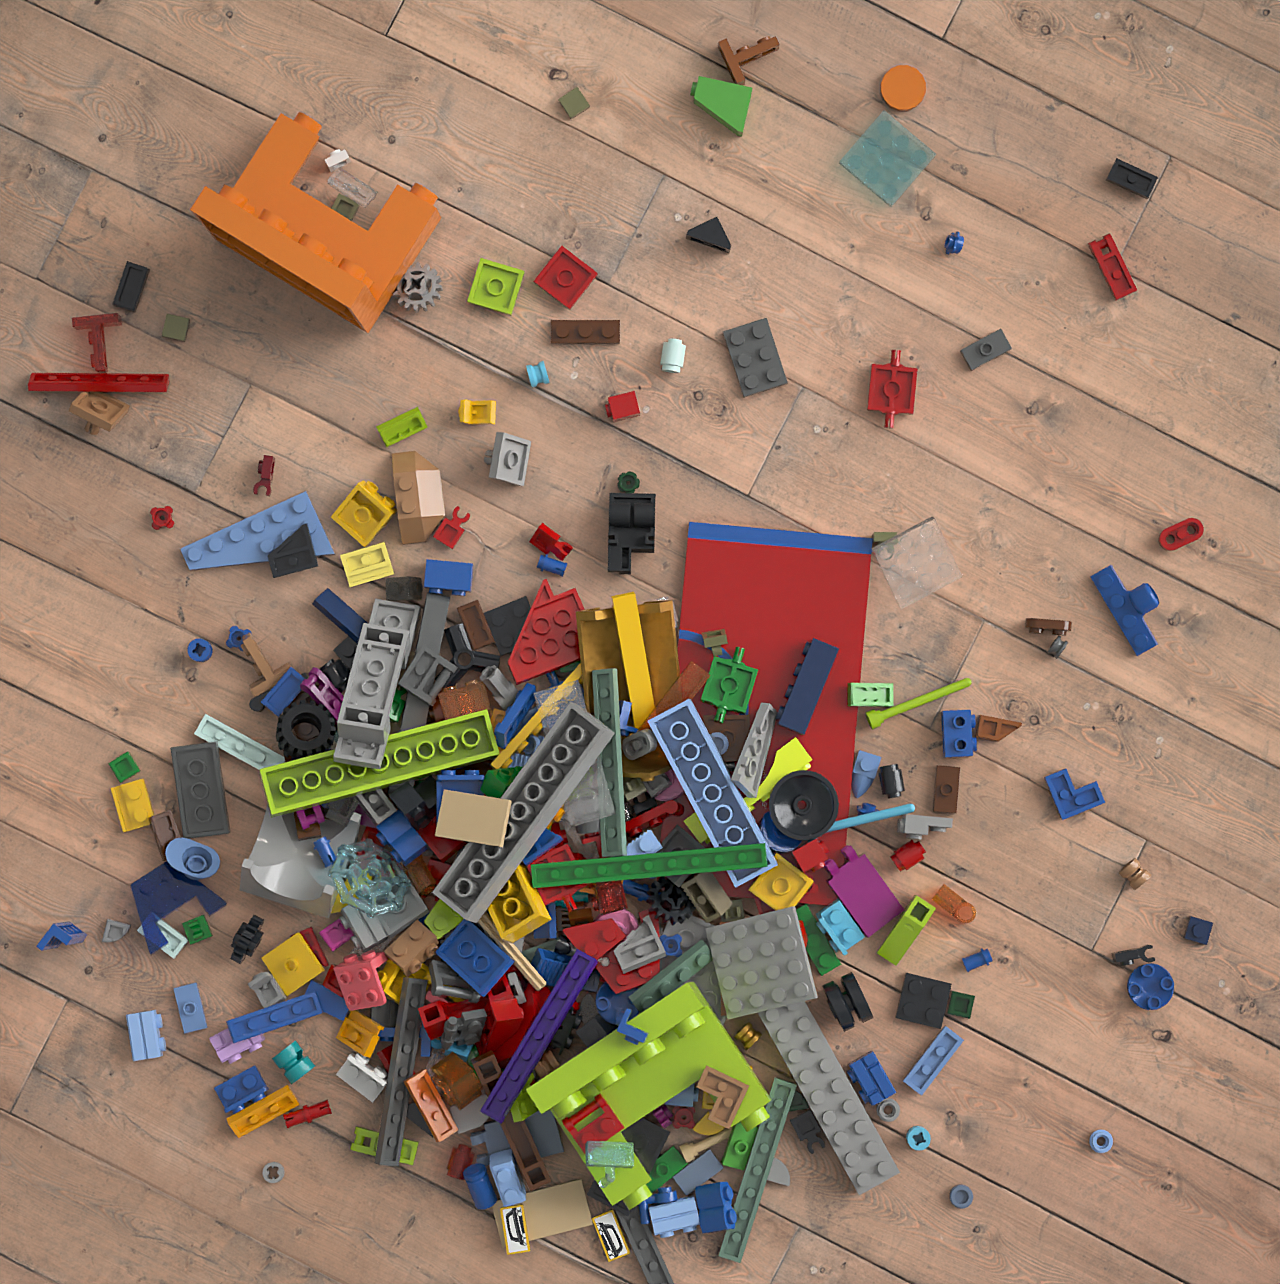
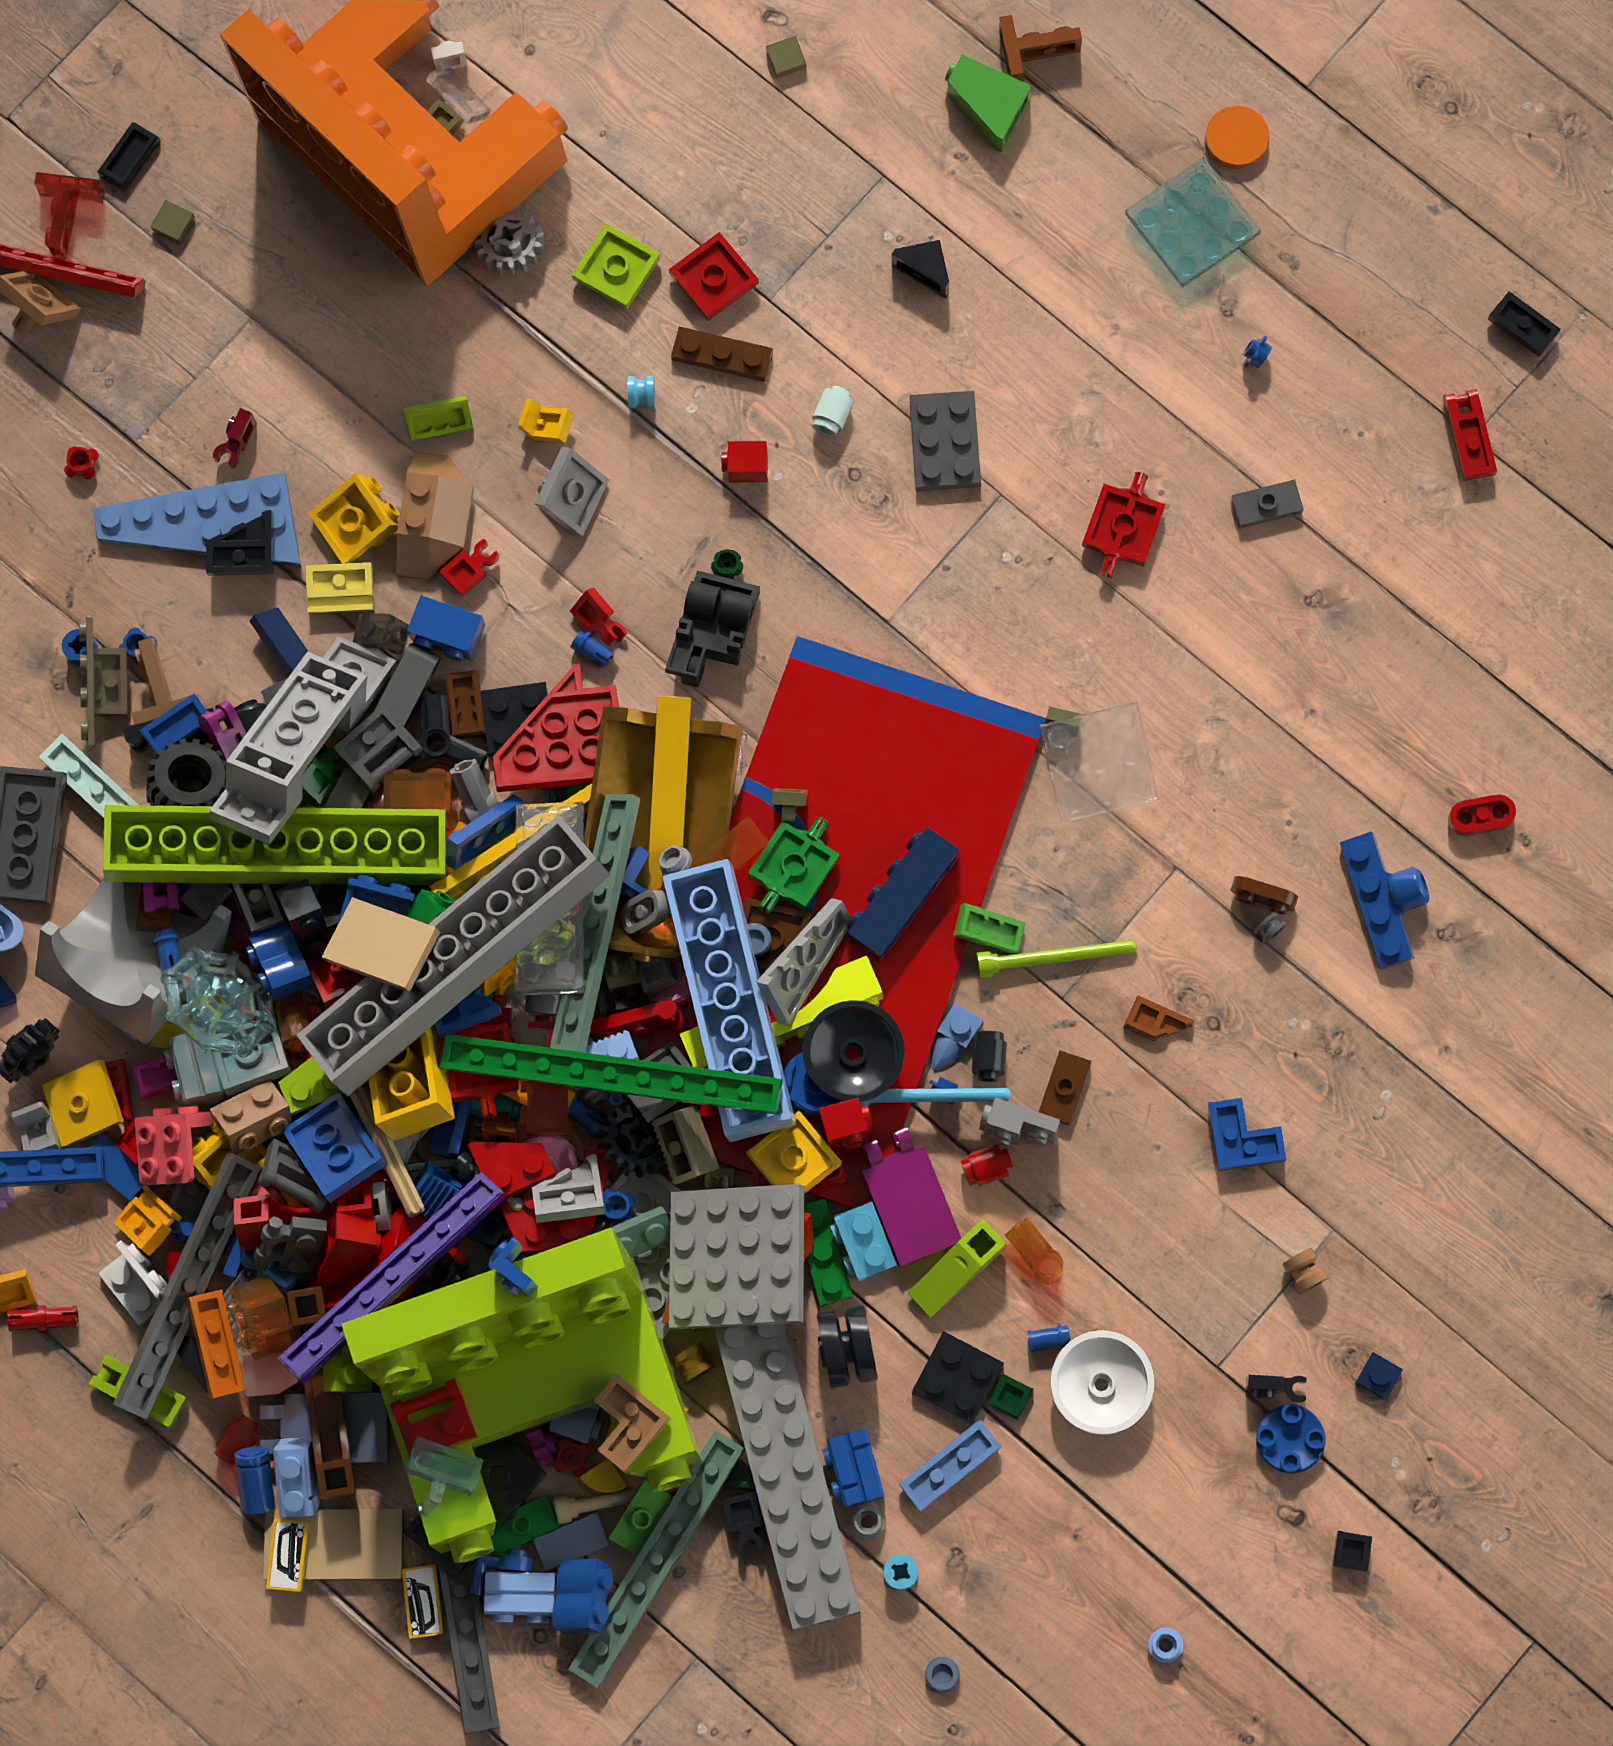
camera: 20 degrees right, 10 degrees down
(224, 669) = (105, 680): none -> dark tan bracket
(293, 1062) = (43, 1239): teal wheel -> none
(650, 704) = (674, 860): none -> light grey plate
(779, 1173) = (687, 1572): light grey tile -> none
(957, 733) = (1099, 1011): blue brick -> none
(1035, 990) = (1105, 1357): none -> white dish
(1207, 1050) = (1352, 1551): none -> black plate

